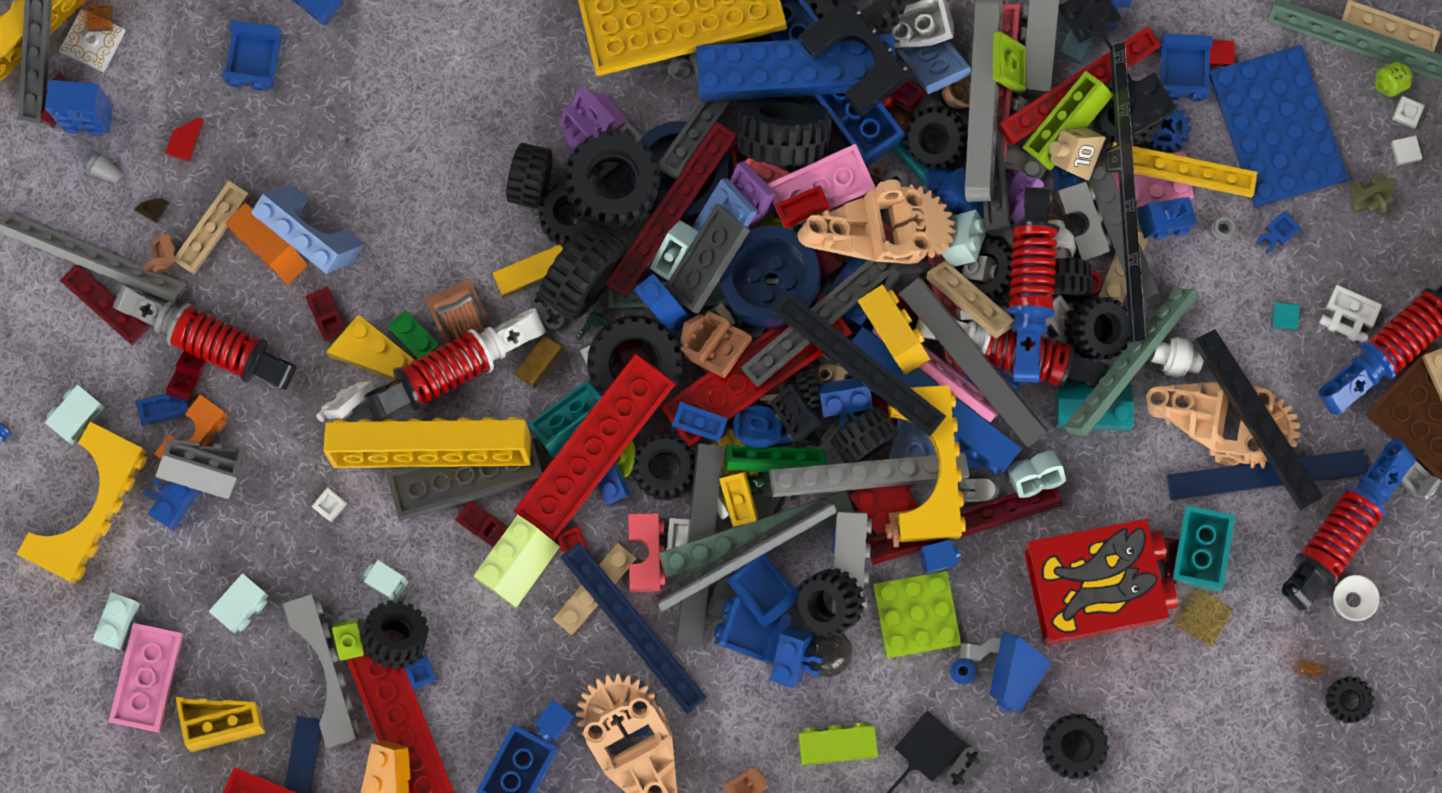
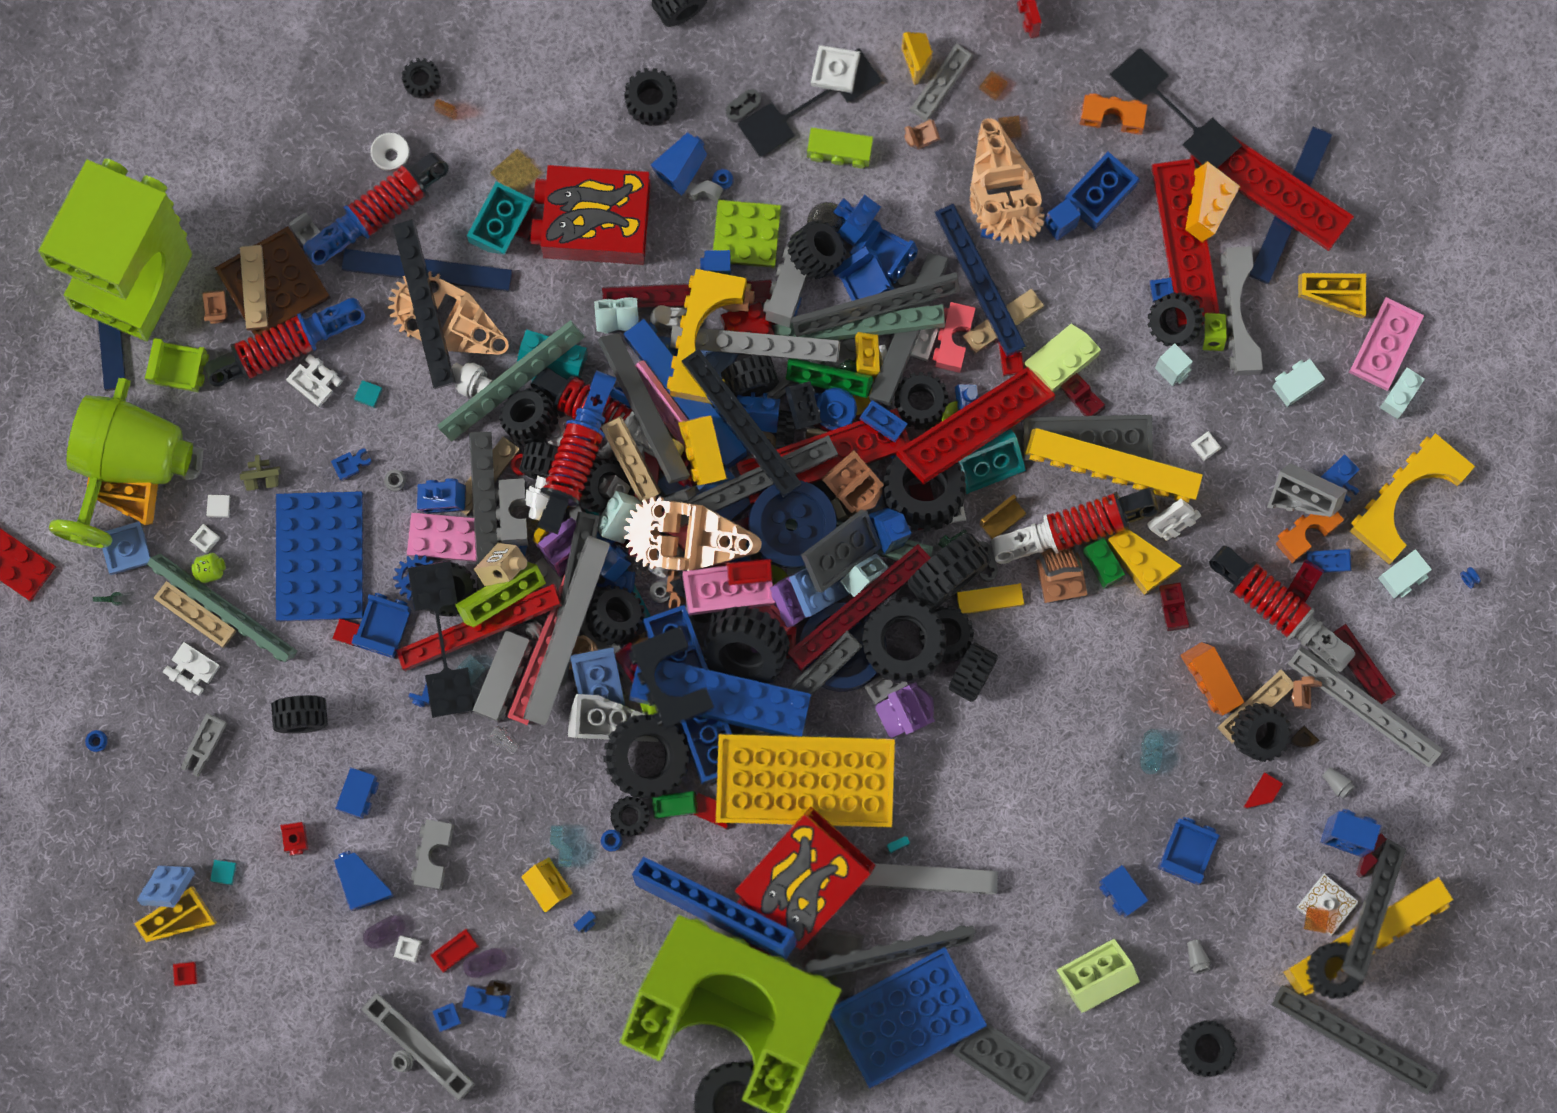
camera: 165 degrees left, 0 degrees up
(198, 194) = (1275, 738): none -> black tyre
(281, 211) = (1196, 686): medium blue arch -> none
(315, 138) = (1150, 761): none -> clear light blue piece
(1009, 62) = (535, 657): lime tile -> none
(1120, 160) = (468, 547): black sticker -> none
(1193, 172) = (415, 532): yellow plate -> none

